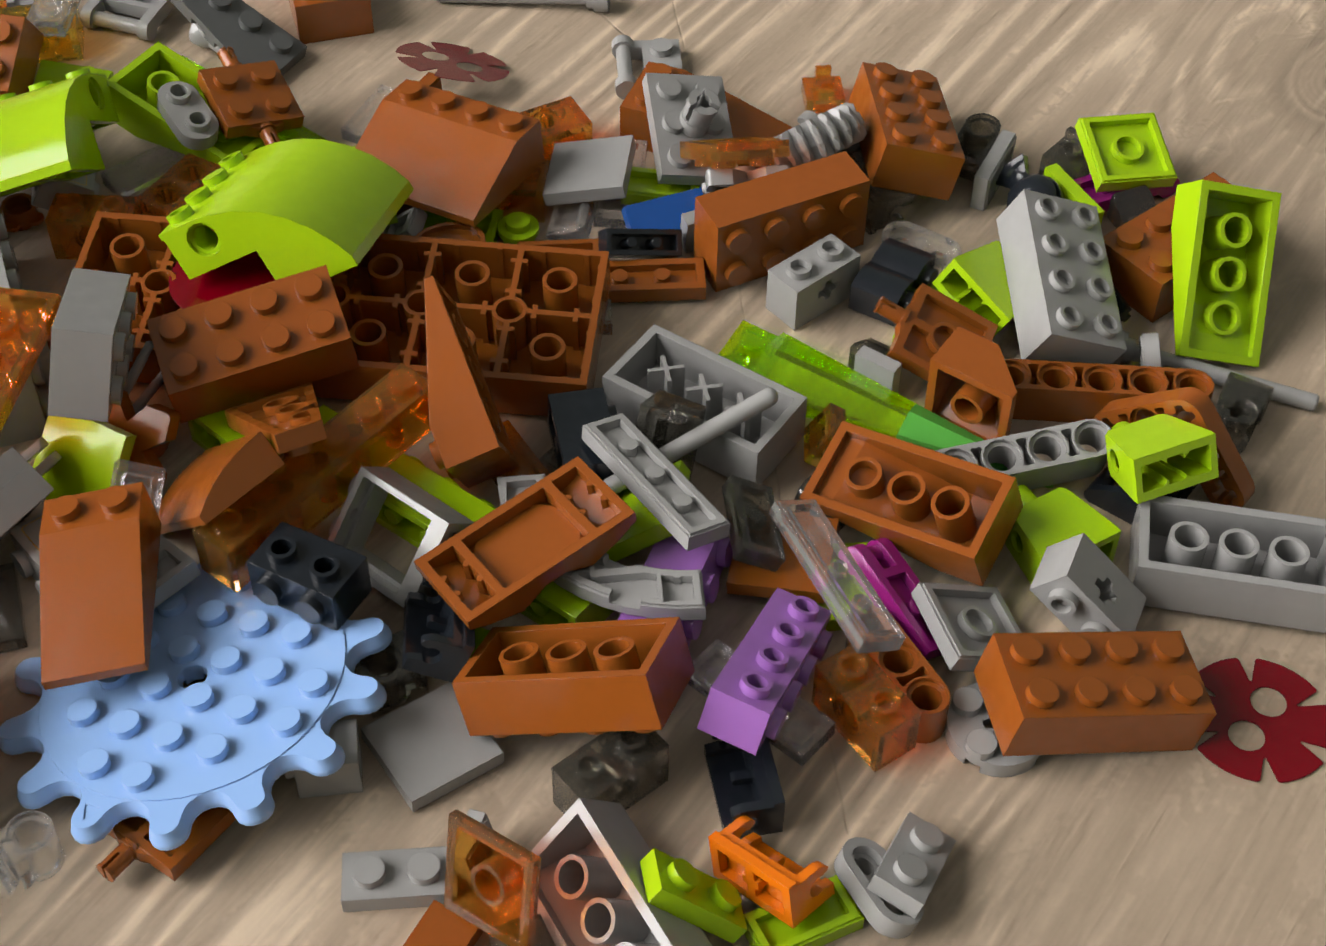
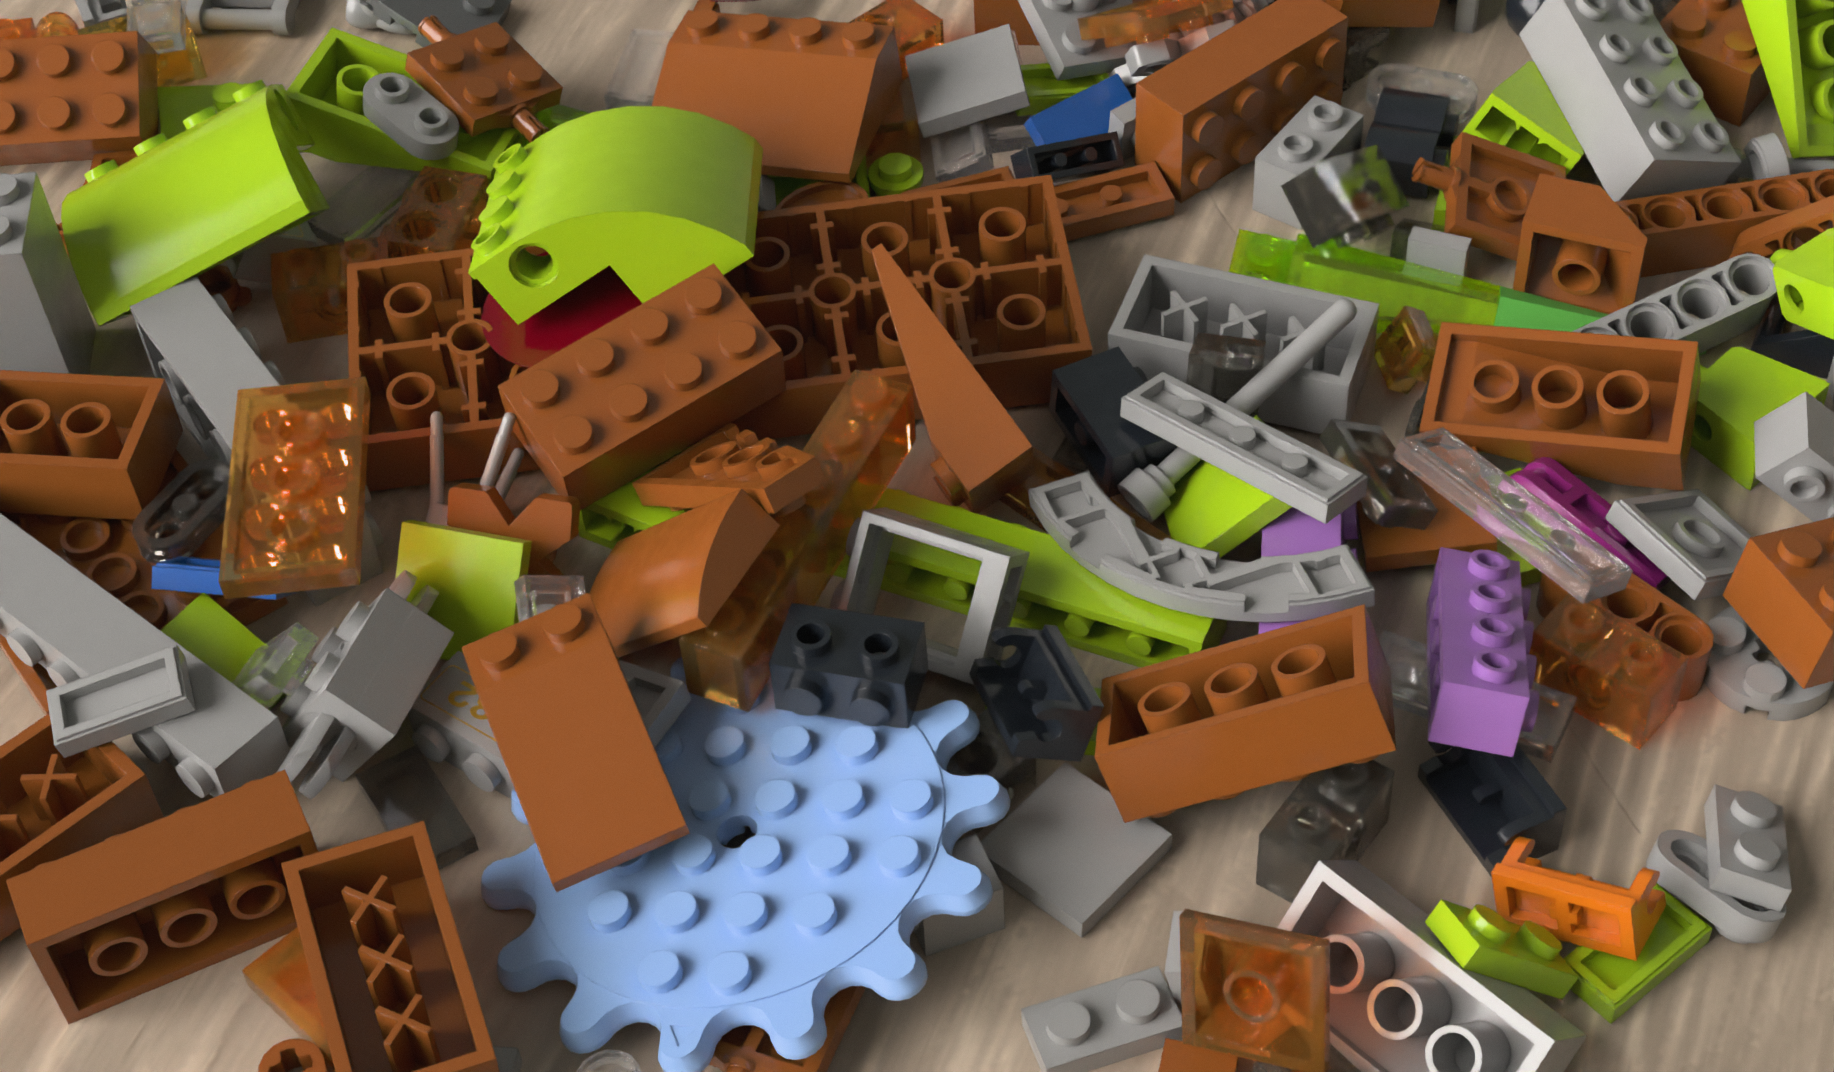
camera: 10 degrees left, 0 degrees up
(91, 345) = (446, 432): light grey brick -> none
(526, 544) = (1117, 561): dark orange slope -> none
(821, 313) = (1346, 198): none -> clear smoke brick

